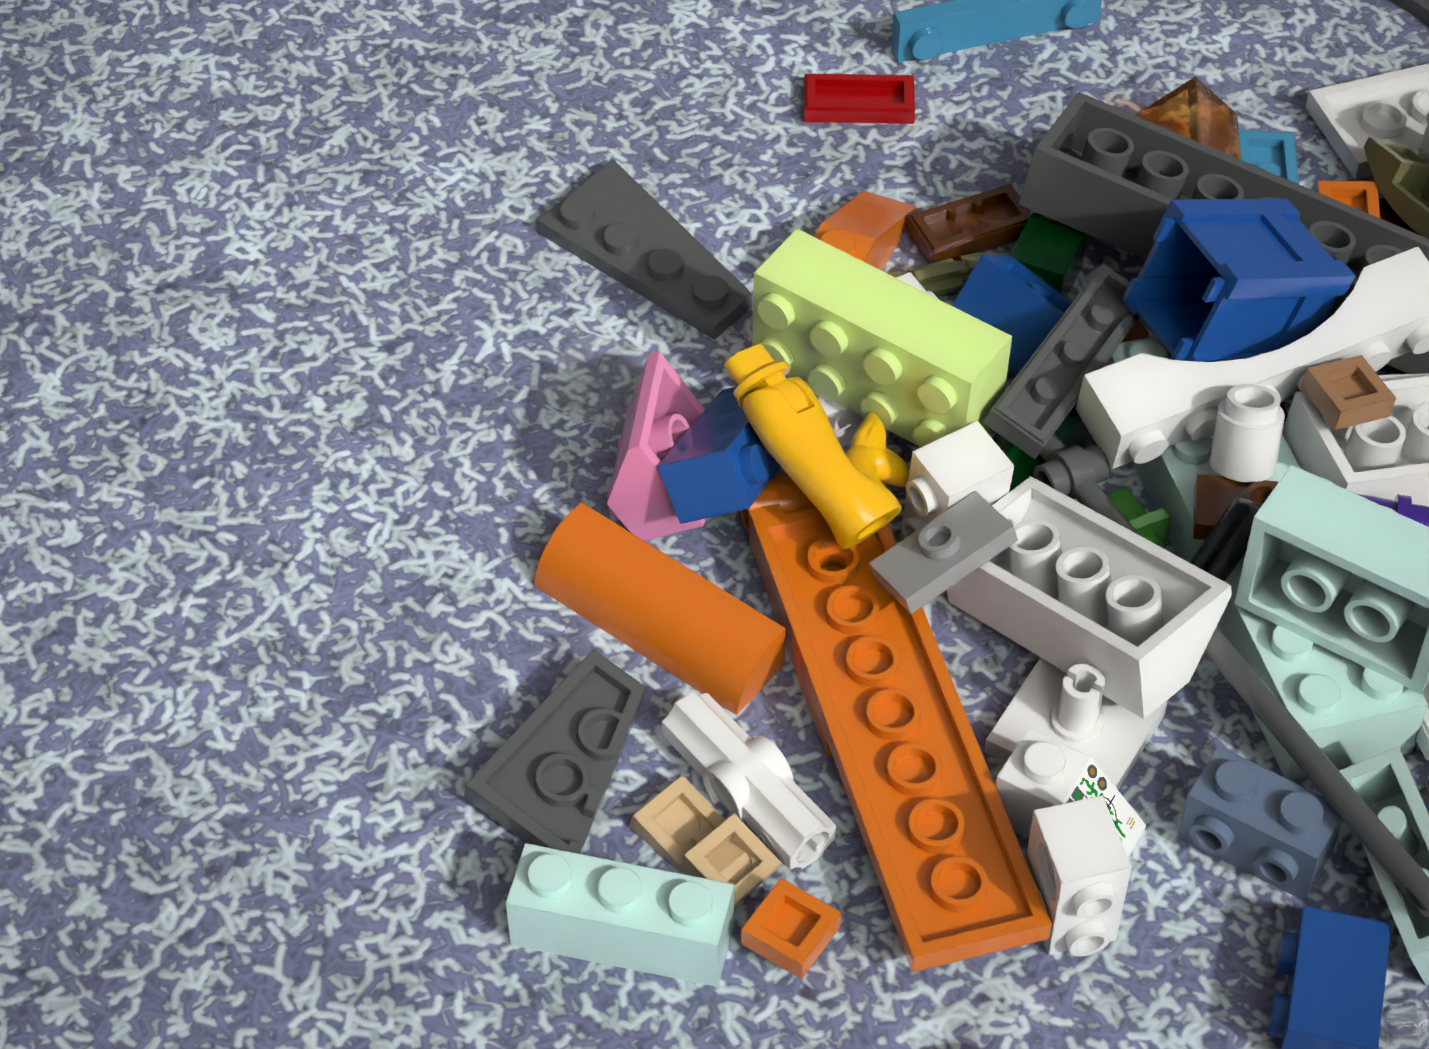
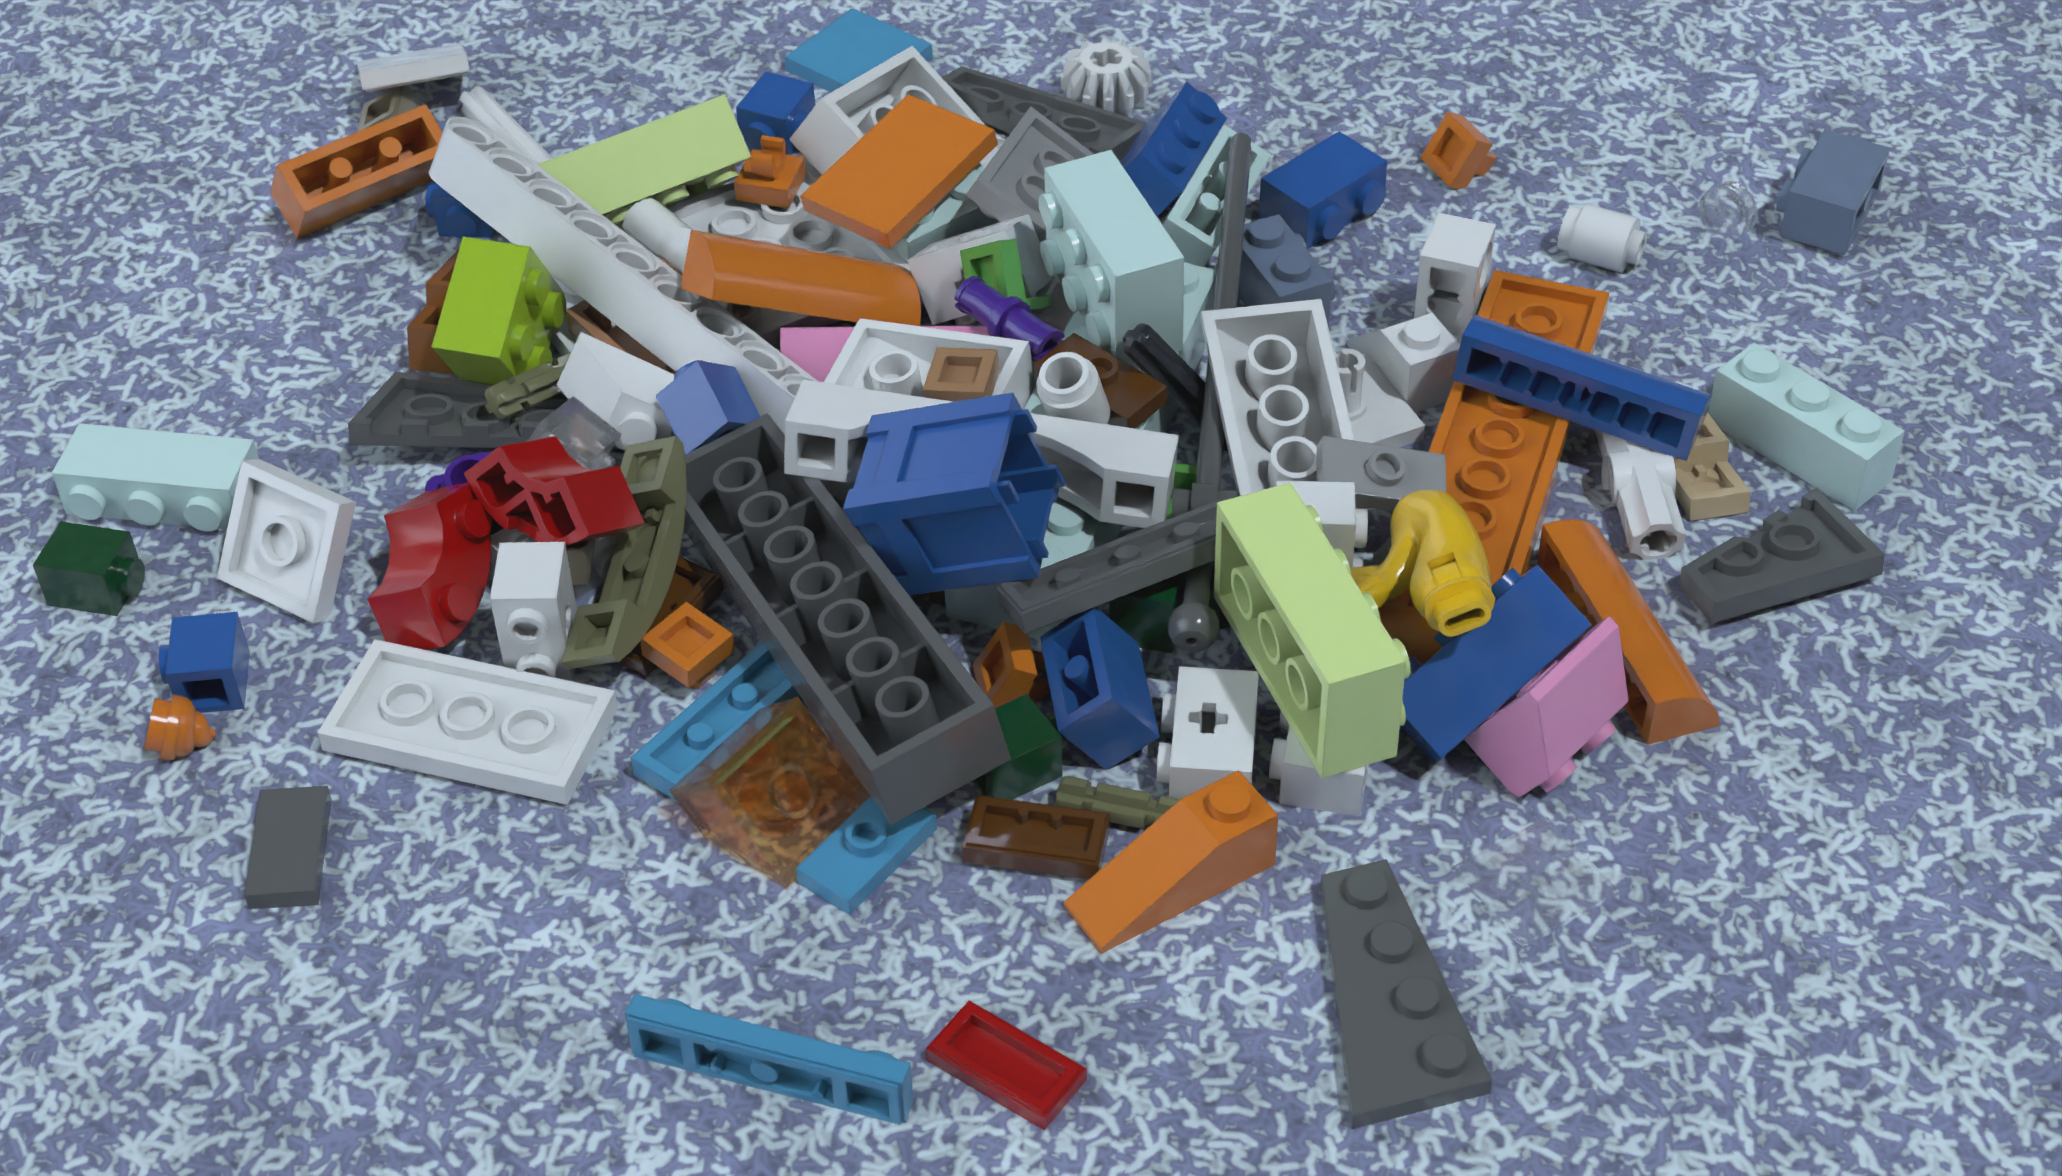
camera: 145 degrees left, 5 degrees down
(791, 928) = (1679, 358): orange tile -> none
(847, 771) = (1581, 387): none -> blue brick

